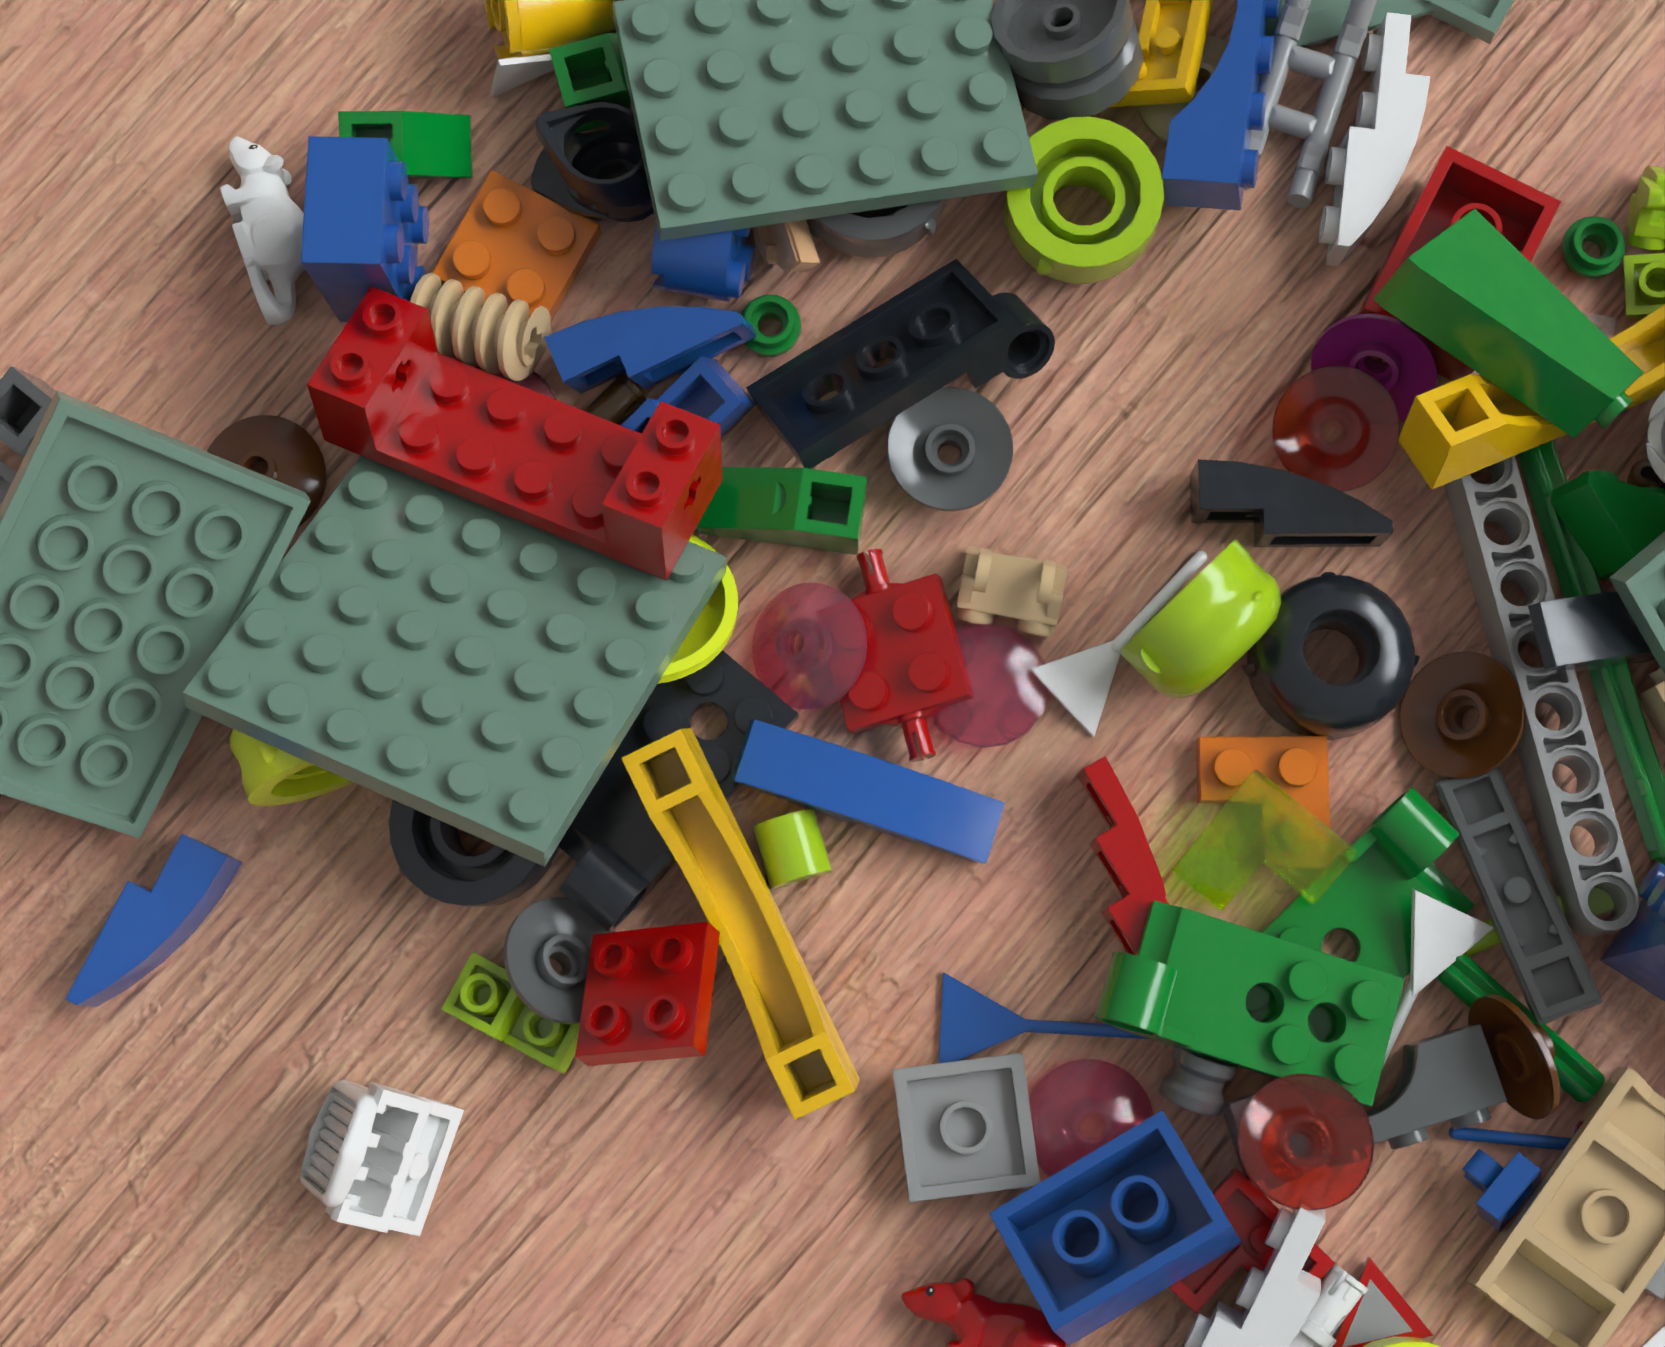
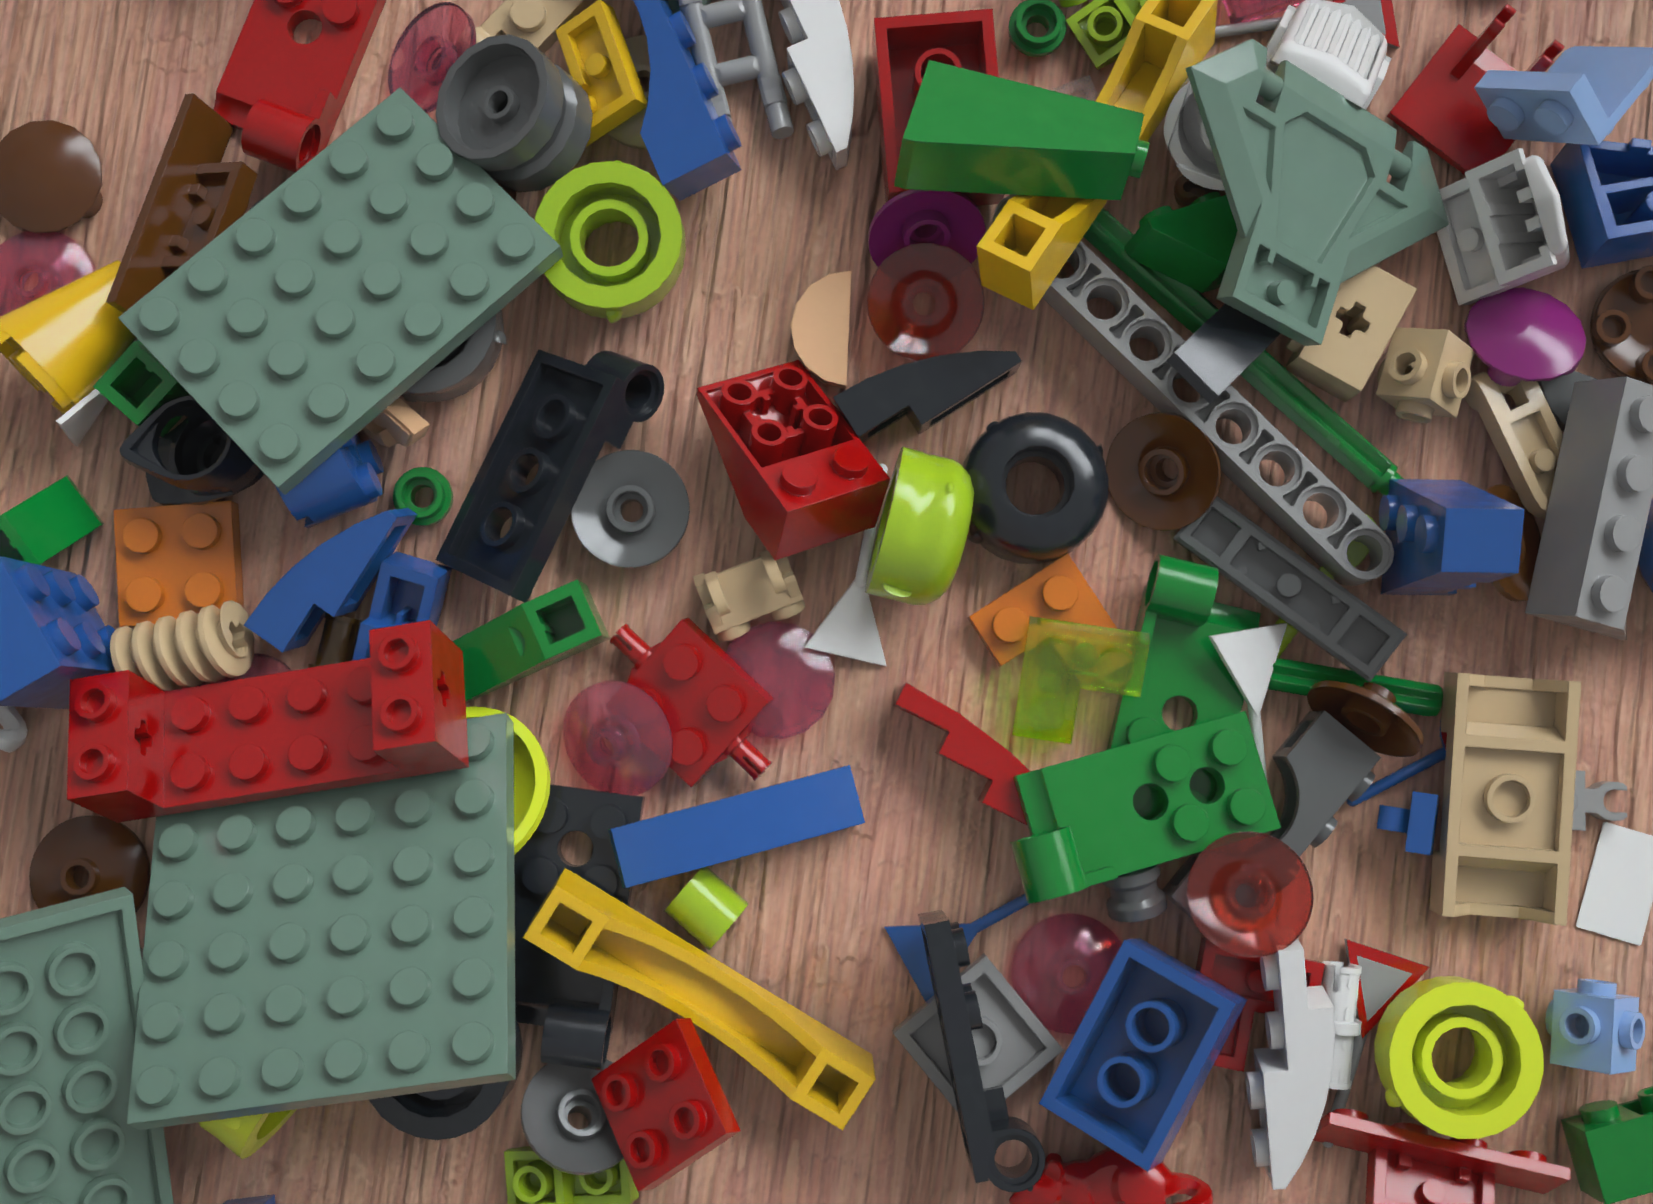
camera: 35 degrees left, 5 degrees up
(928, 1191) = (980, 1111): none -> black hinge
(1126, 494) = (792, 459): none -> red slope
(1226, 396) = (822, 328): none -> light nougat tile

